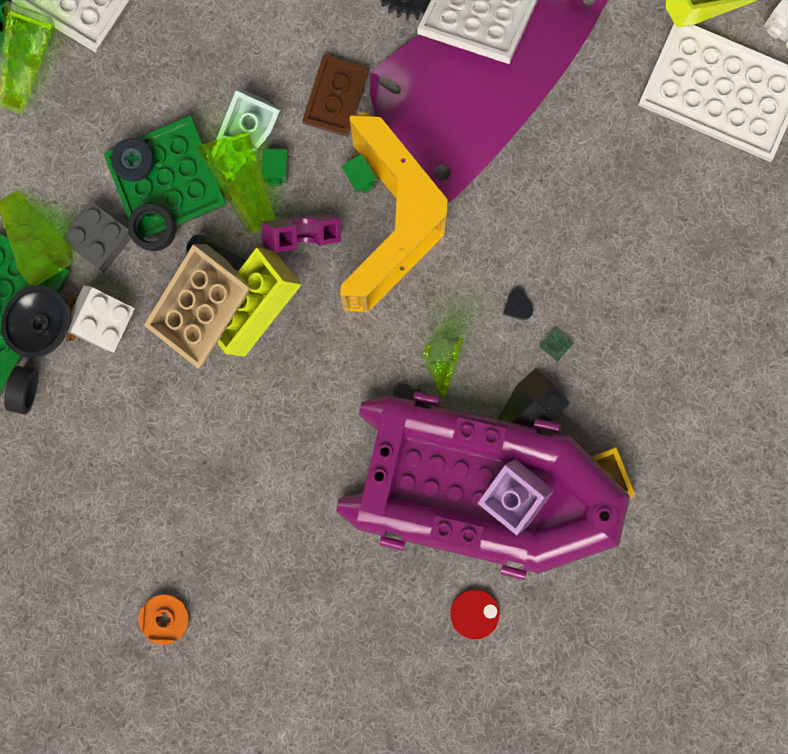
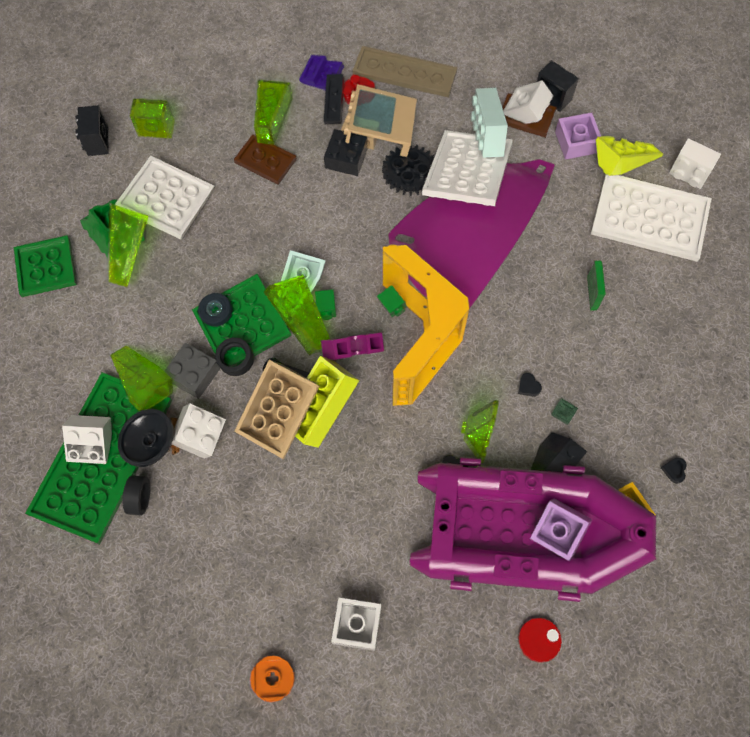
camera: 10 degrees left, 15 degrees down
(265, 572) = (356, 624): none -> white brick
(335, 95) = (365, 251): reddish brown plate -> none
(626, 184) = (596, 285): none -> green tile
(677, 435) = (675, 470): none -> black tile

